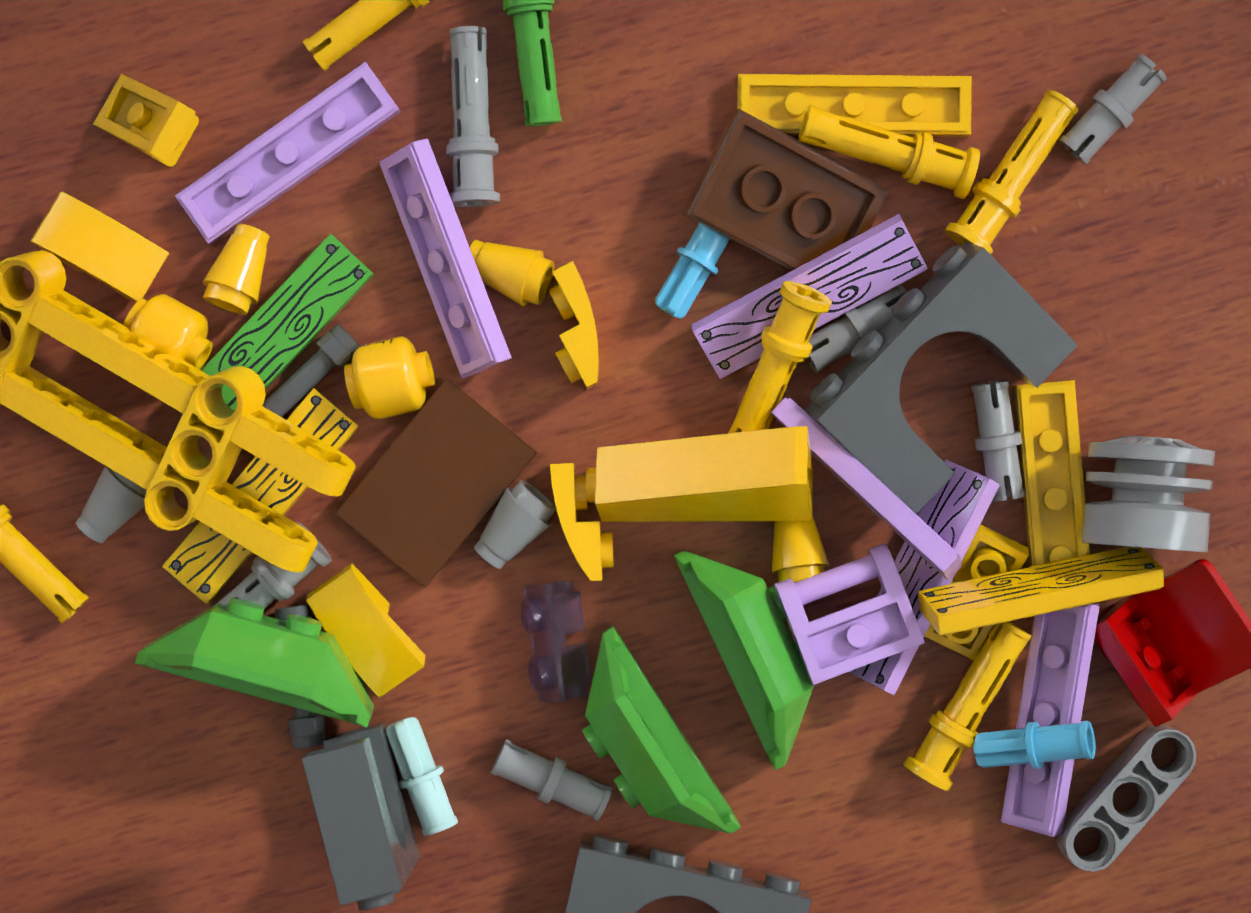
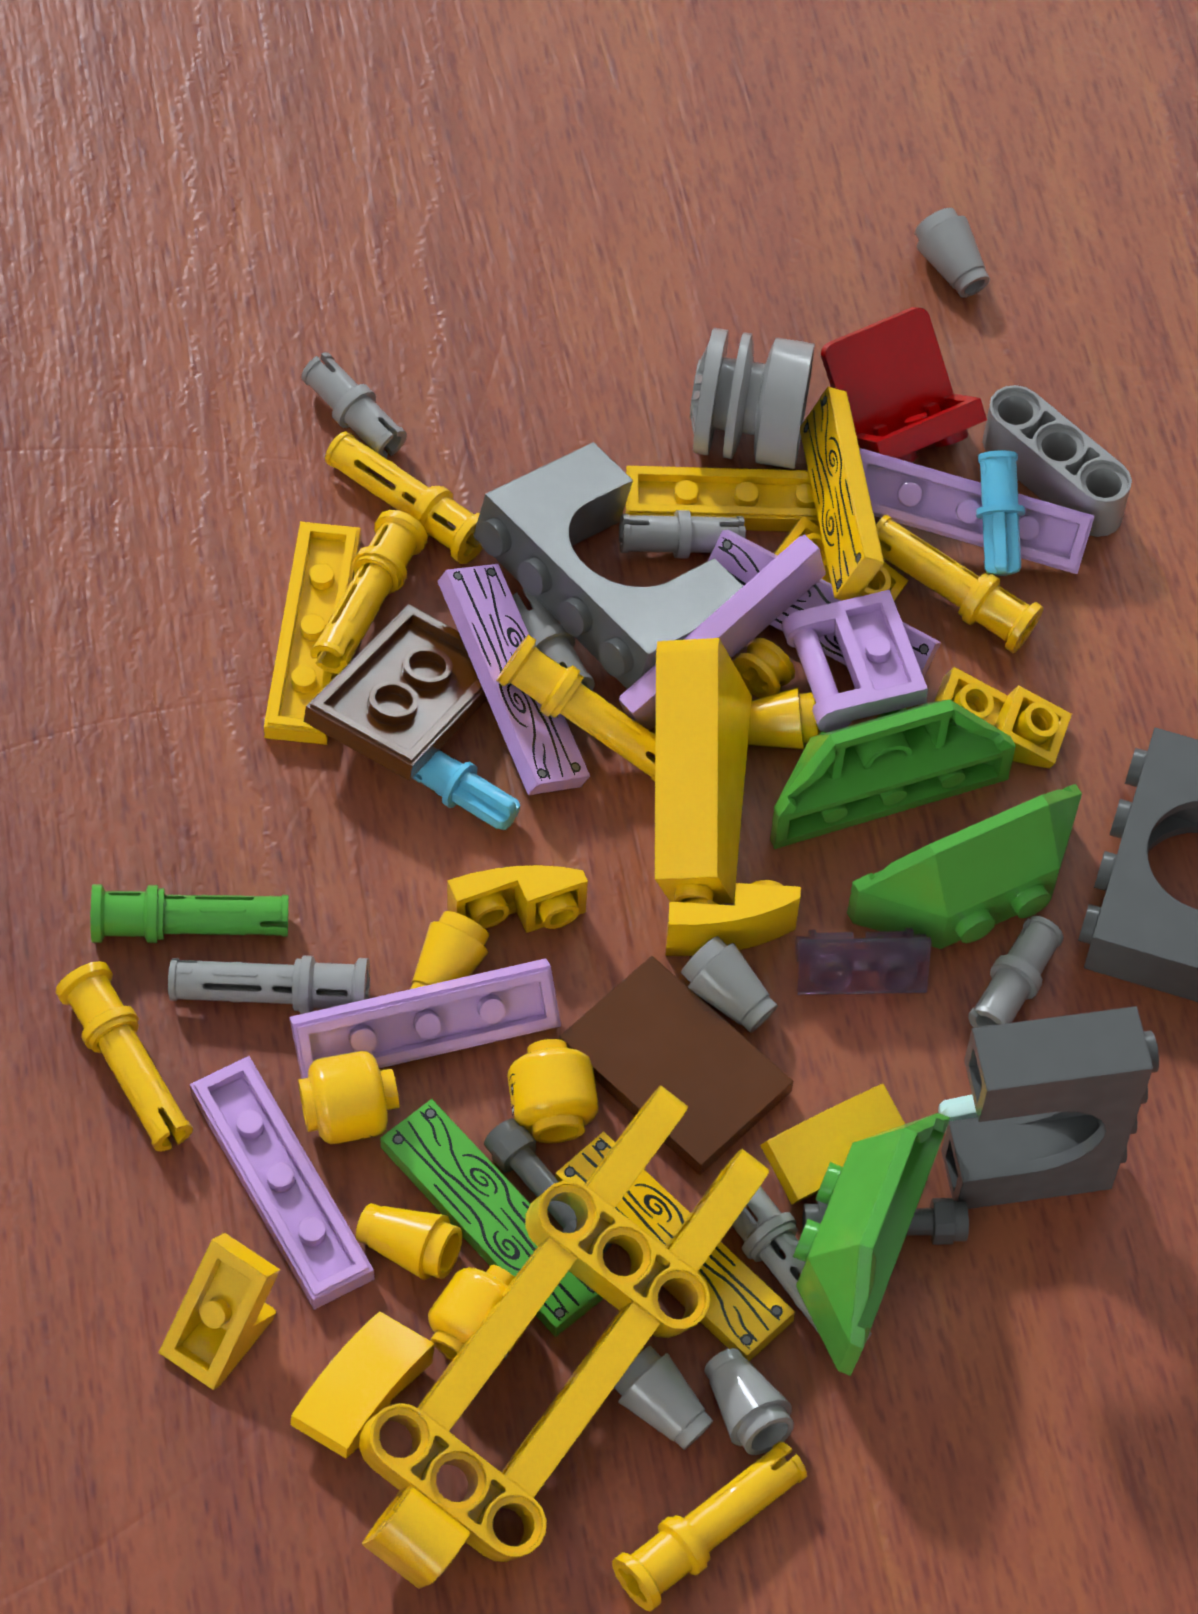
camera: 90 degrees left, 30 degrees down
(119, 570) = (748, 1402): none -> light grey cone
(358, 199) = (347, 1097): none -> yellow head
(828, 753) = (1029, 719): none -> yellow slope
(852, 530) = (764, 668): none -> yellow bush

